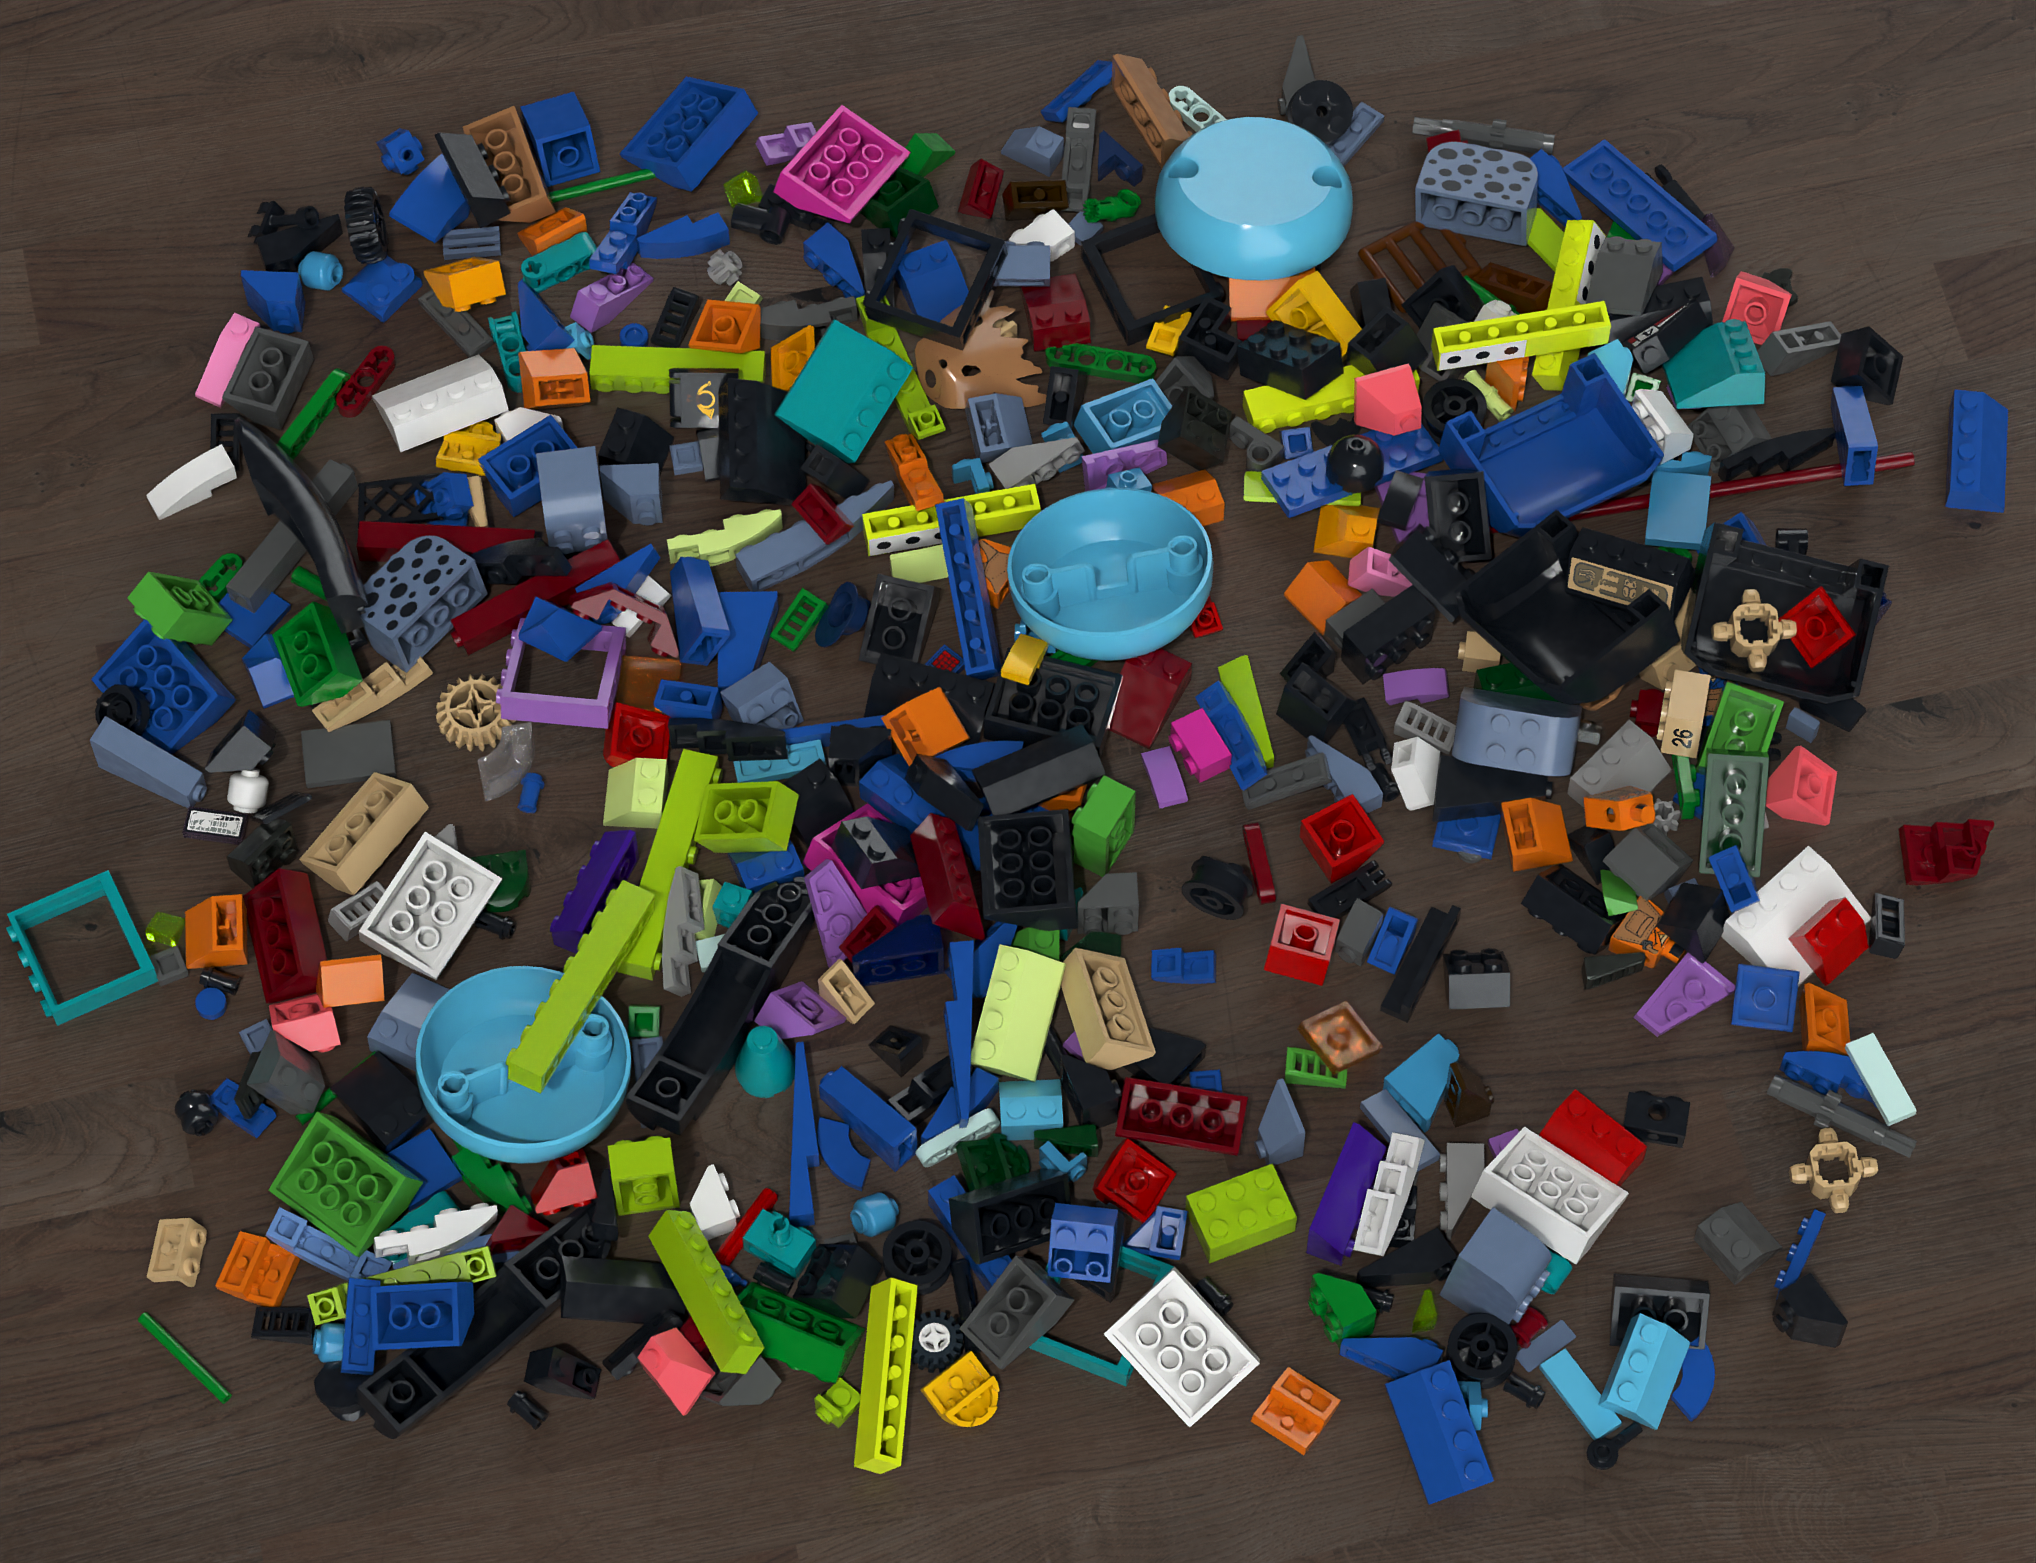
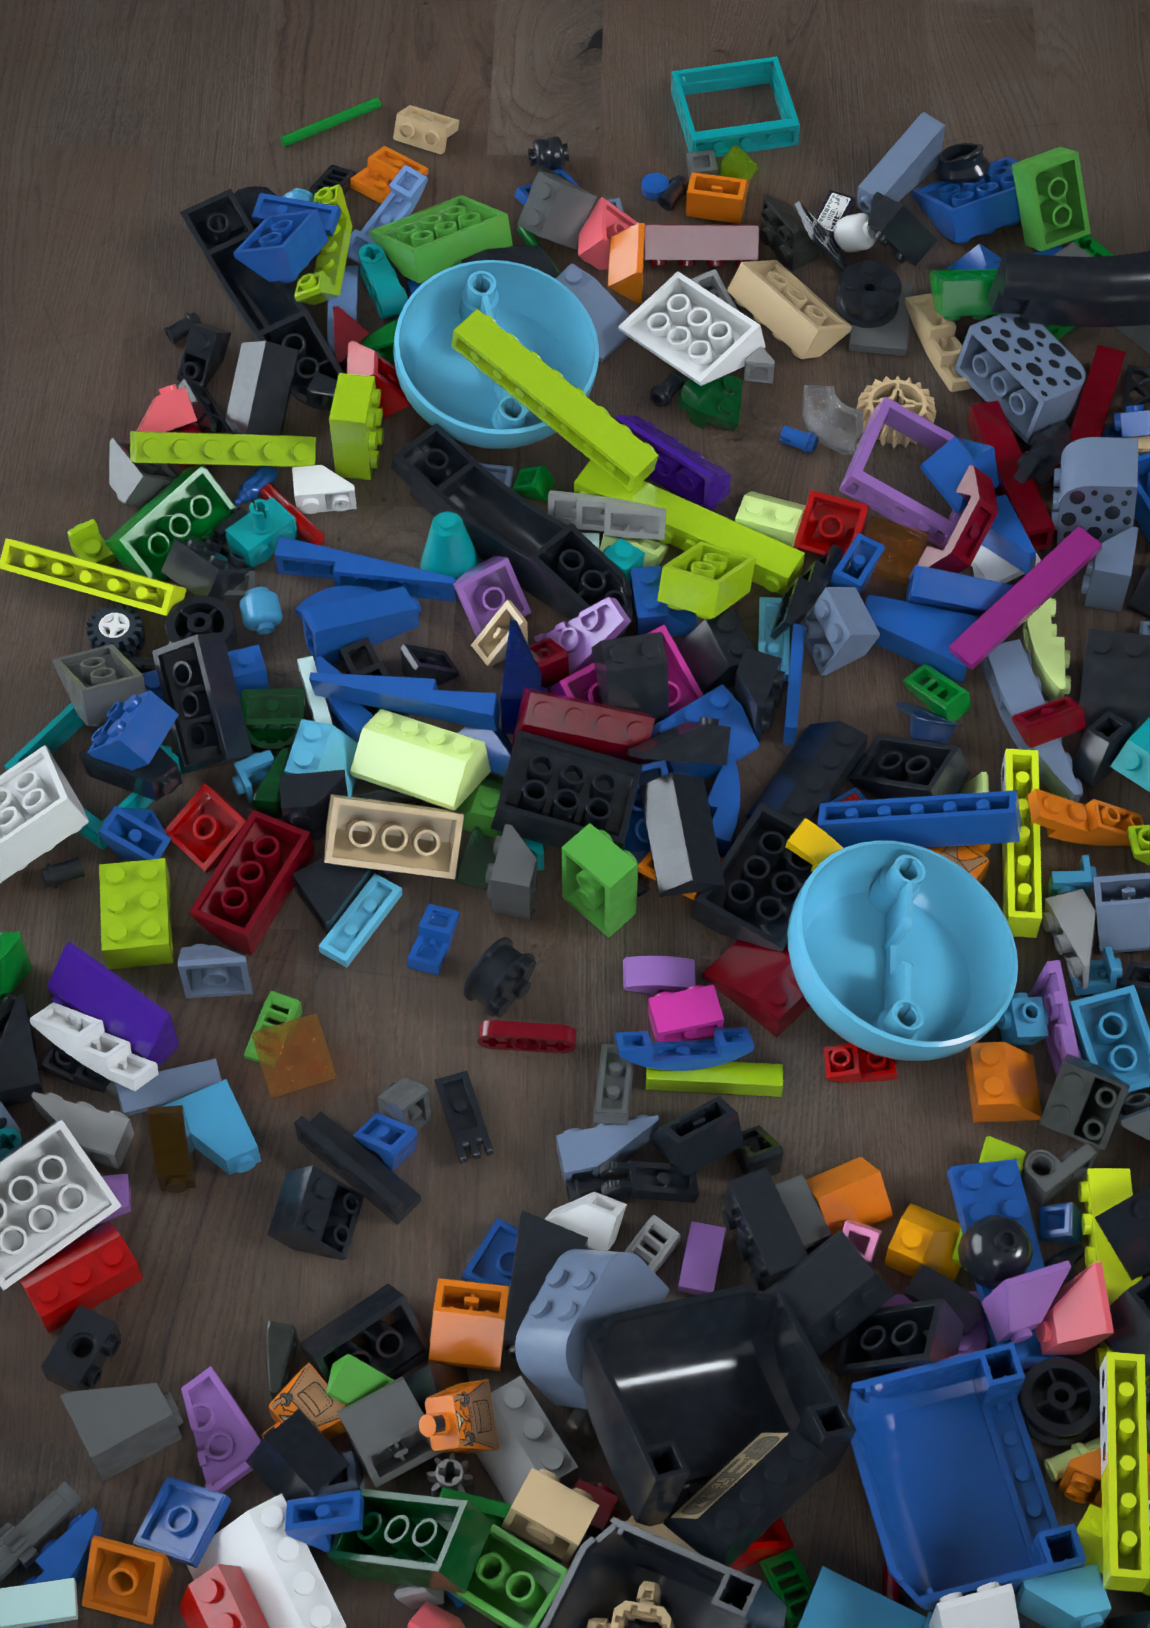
camera: 105 degrees right, 5 degrees down
(336, 759) = (868, 294): none -> black wheel
(450, 1232) = (358, 276): white slope -> none
(701, 546) = (1025, 598): none -> magenta tile
(925, 726) = (767, 754): orange slope -> none
(963, 1392) = (52, 638): yellow slope -> none
(1206, 1080) = (292, 926): blue tile -> none
(1211, 1032) = (360, 920): none -> medium azure plate
(1301, 944) = (414, 1046): red slope -> none
(1340, 837) = (524, 1112): red slope -> none
(1394, 434) = (1023, 1301): none -> medium lavender slope
(1712, 1057) = (123, 1424): none -> dark grey slope

